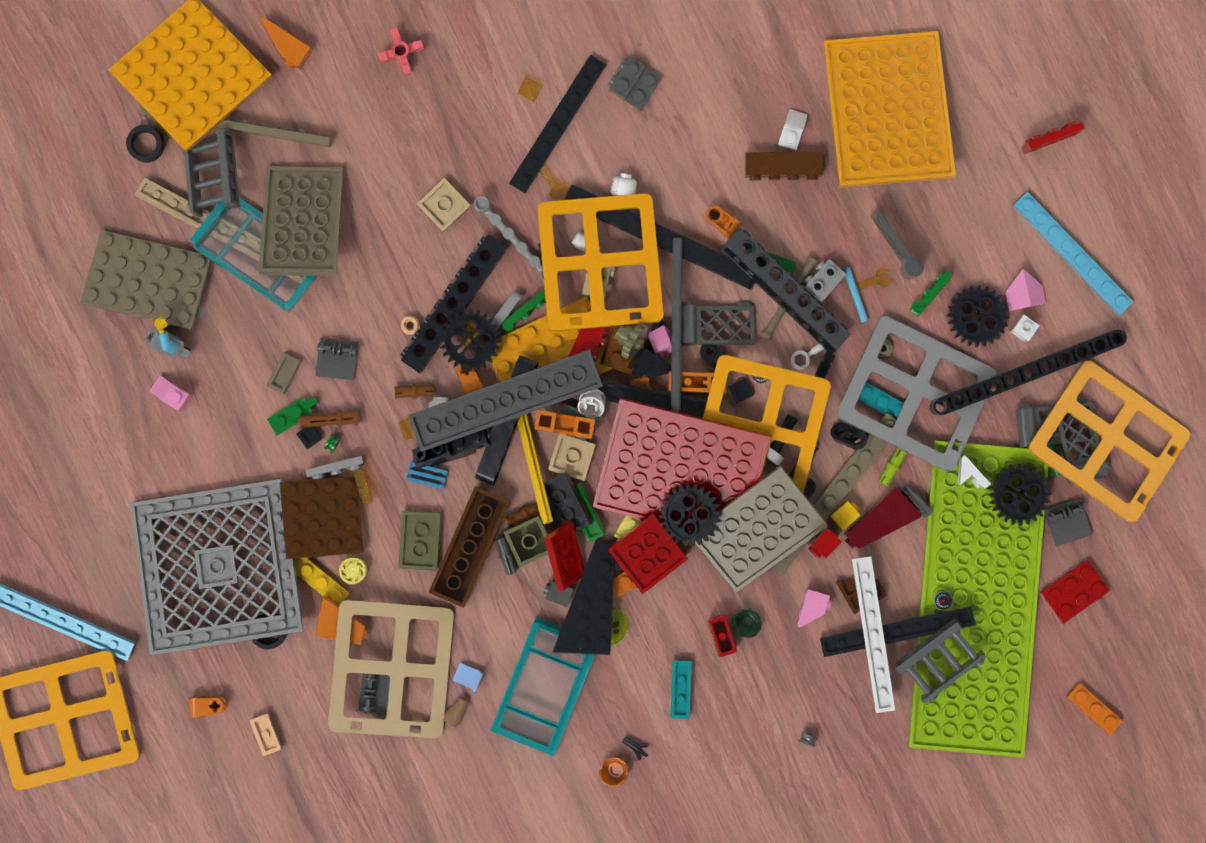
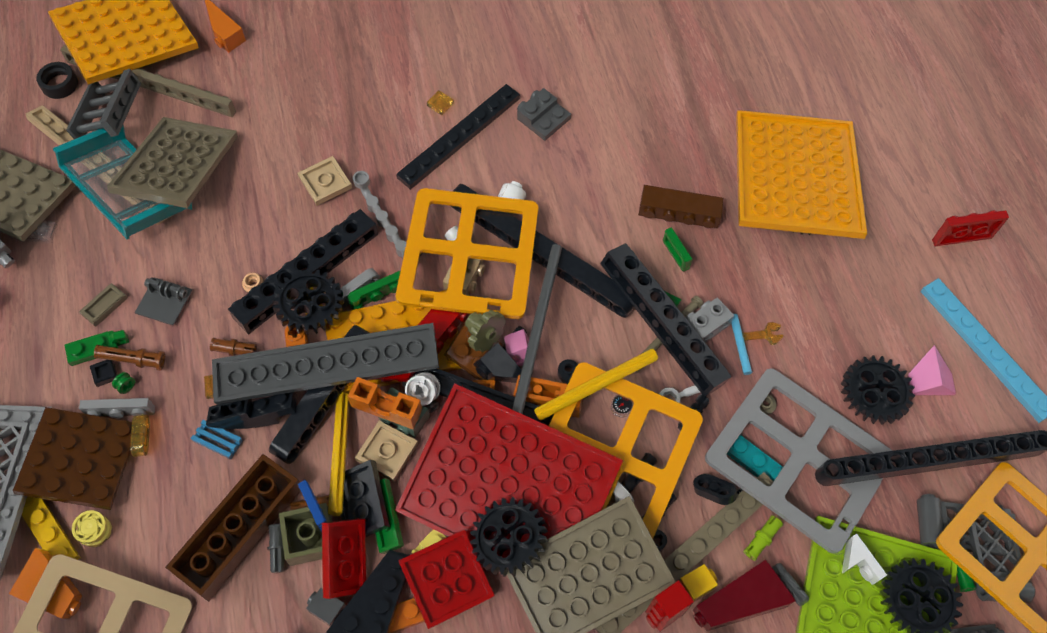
camera: 10 degrees right, 25 degrees down
(391, 54) = (326, 50): coral pin -> none
(419, 540) = (181, 509): olive plate -> none
(531, 522) = (312, 503): none -> blue tile
(552, 183) = (439, 181): clear yellow bar -> none
(692, 321) = (555, 333): dark grey piece -> none
(723, 221) = (608, 243): orange piece -> none
(738, 373) = (596, 384): none -> yellow axle
(740, 390) = (596, 418): black tile -> none
(786, 212) = (677, 249): none -> green tile
(792, 130) = (695, 178): white slope -> none
(910, 266) = (805, 315): dark grey piece -> none
(930, 294) = (826, 357): green hinge -> none
(1024, 328) = (931, 411): white brick -> none

